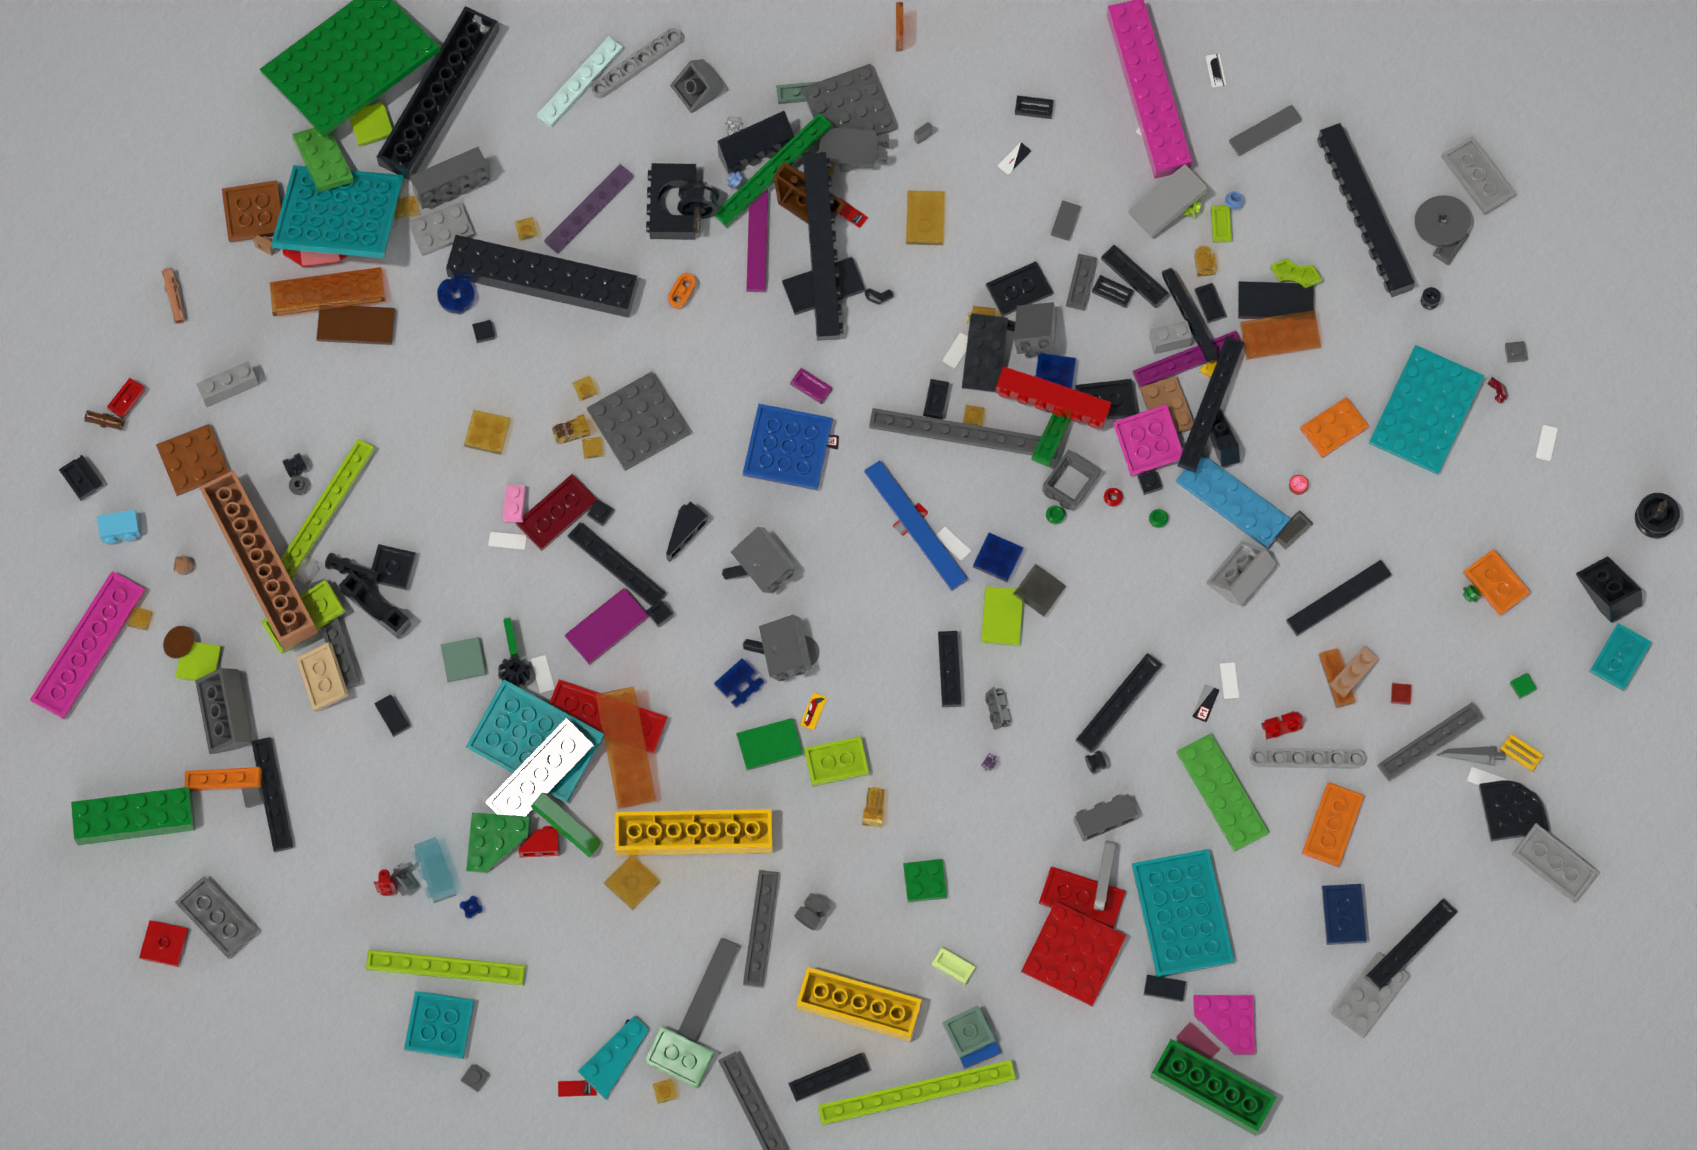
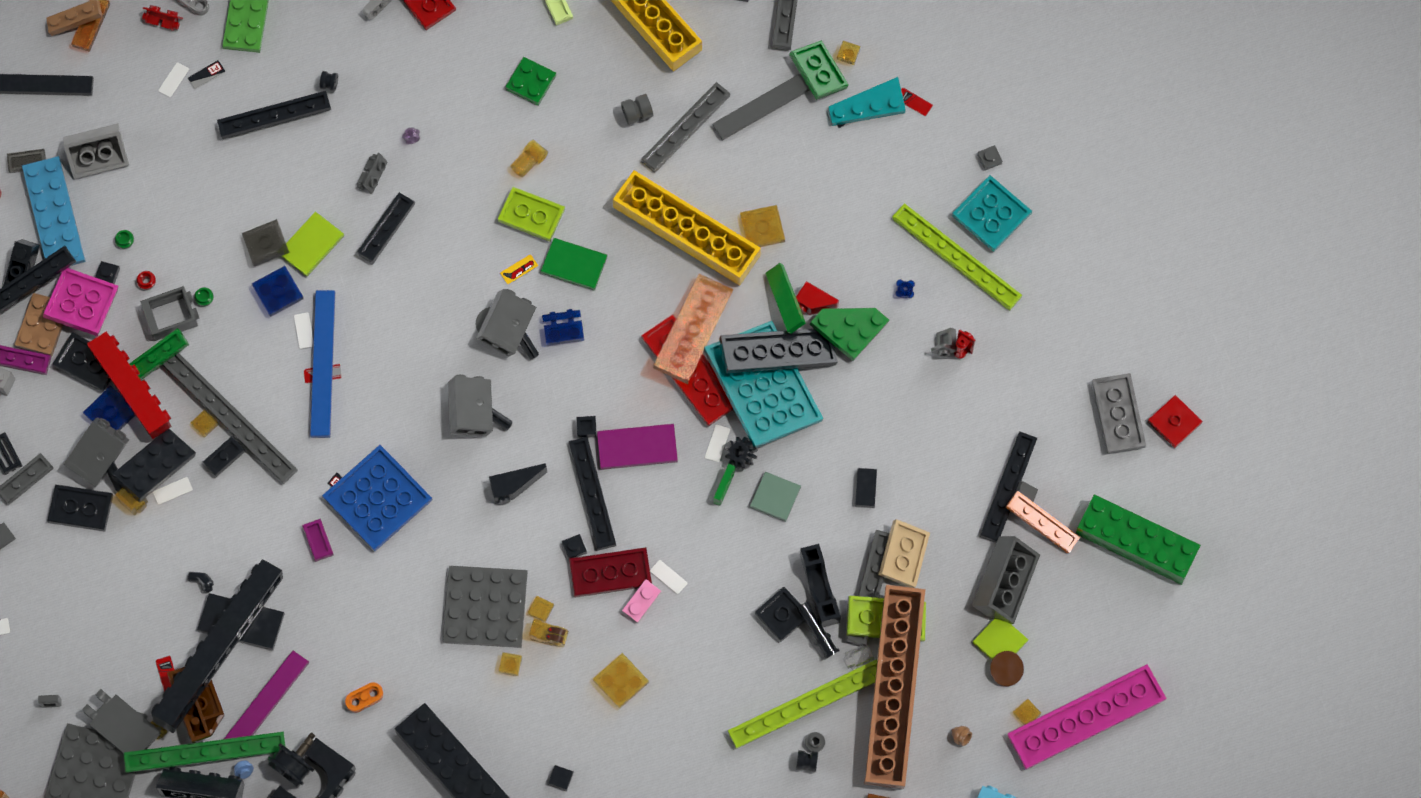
camera: 145 degrees left, 0 degrees up
(433, 870) = (916, 335): clear light blue brick -> none
(925, 217) = (108, 625): clear yellow tile -> none
(1105, 817) = (355, 34): dark grey brick -> none

